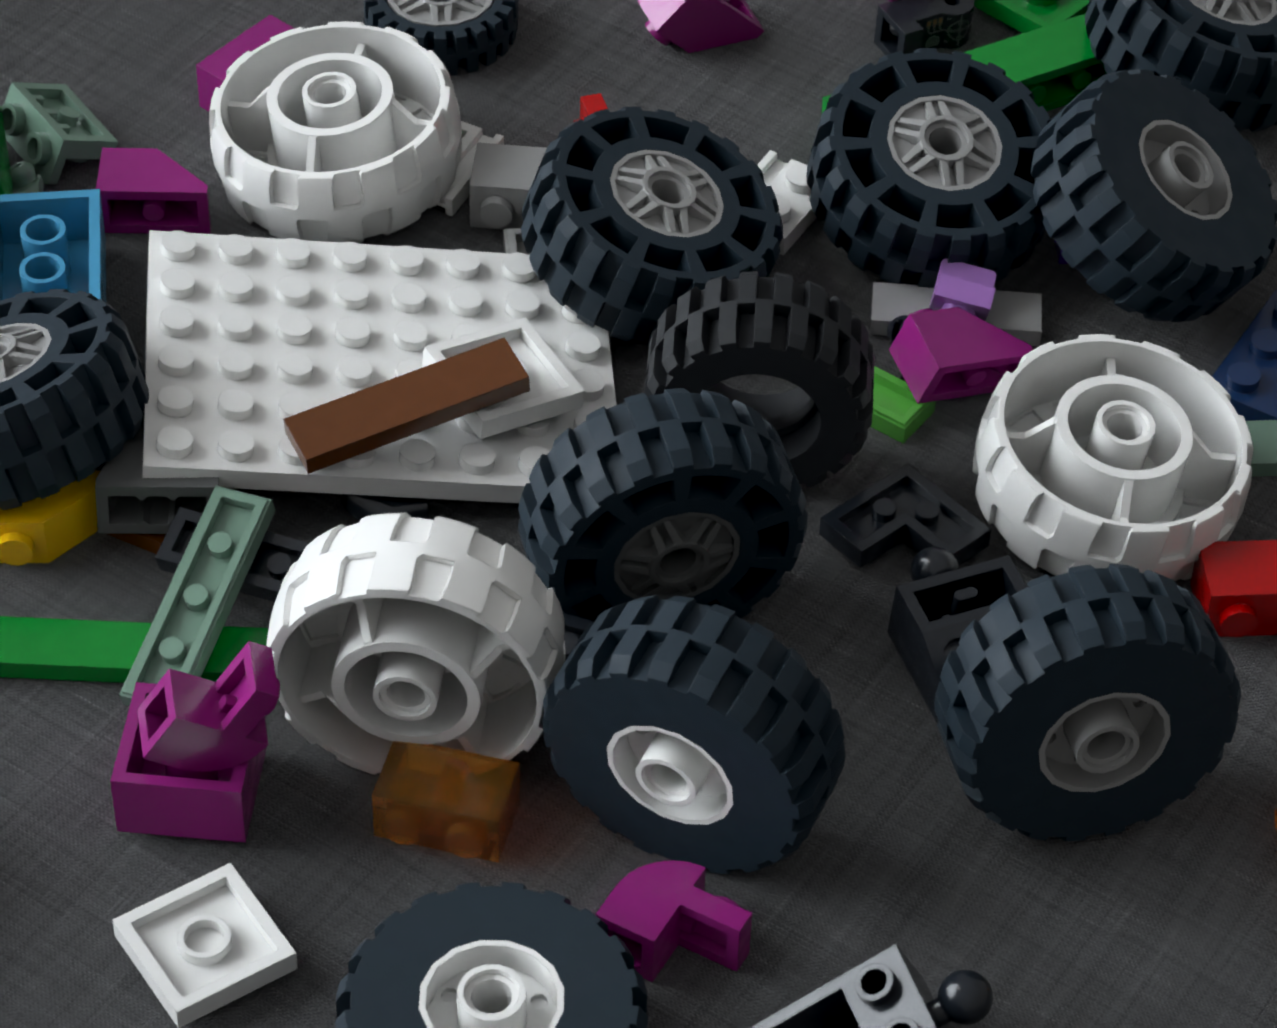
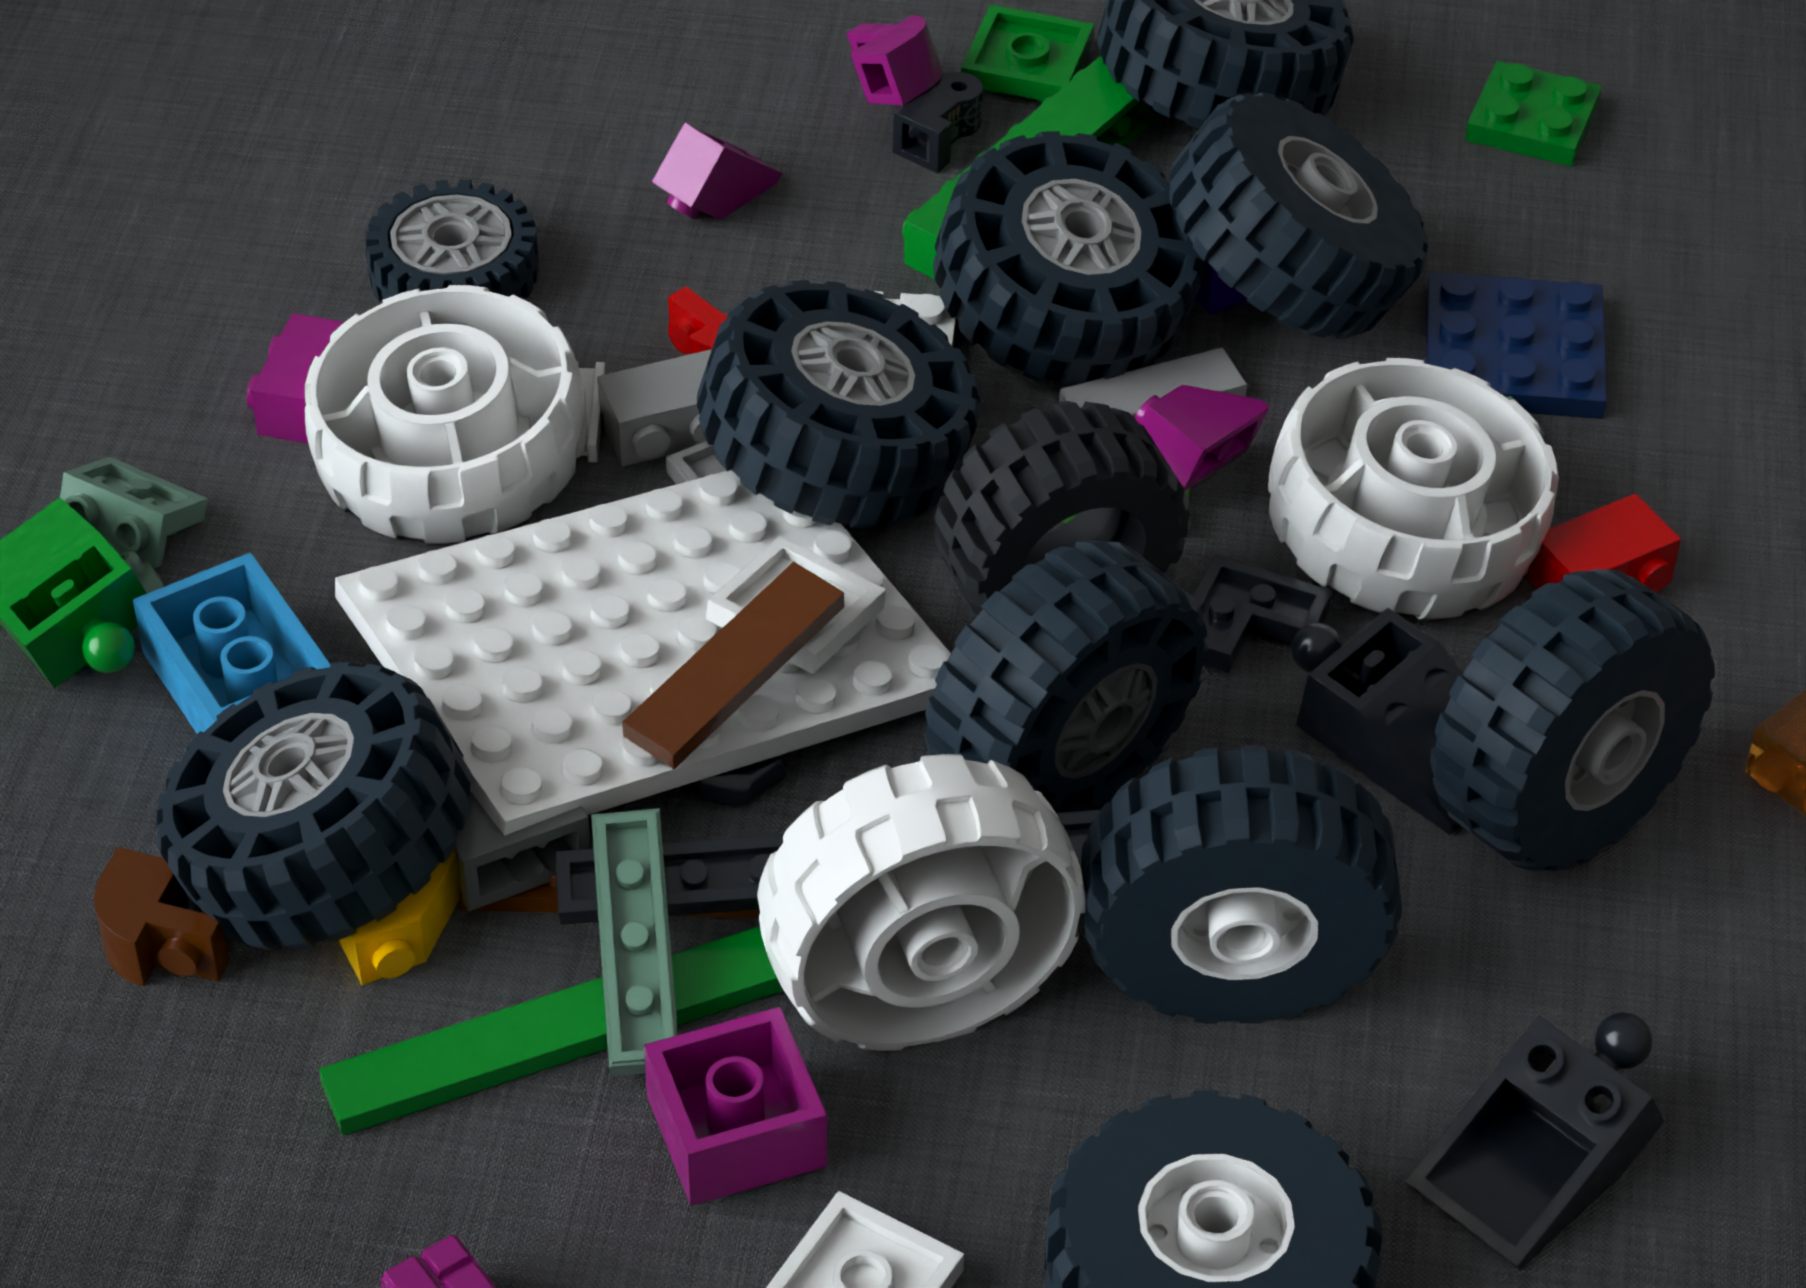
camera: 25 degrees left, 0 degrees up
(150, 192) = (287, 536): magenta slope -> none
(211, 723) = (766, 1054): magenta brick -> none
(446, 800) = (1003, 1046): clear orange brick -> none
(669, 907) = (1290, 1068): magenta brick -> none
(964, 287) = (1165, 365): medium lavender bracket -> none

